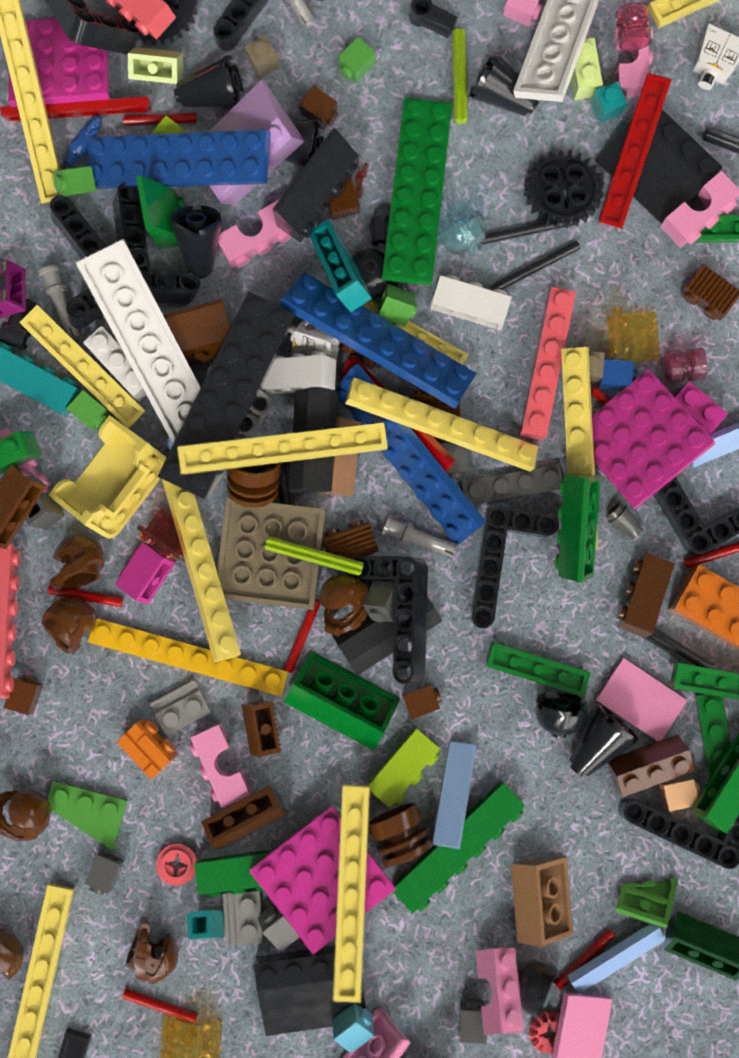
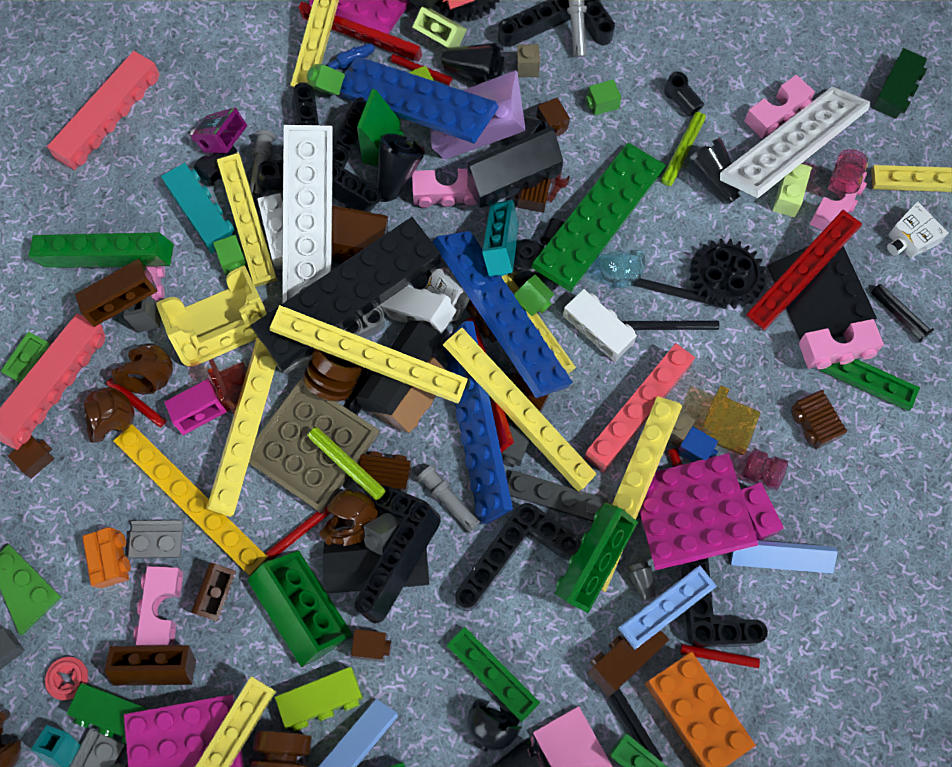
camera: 25 degrees right, 15 degrees down
(608, 102) = (800, 223): teal brick -> none
(661, 537) = (667, 607): none -> light blue tile

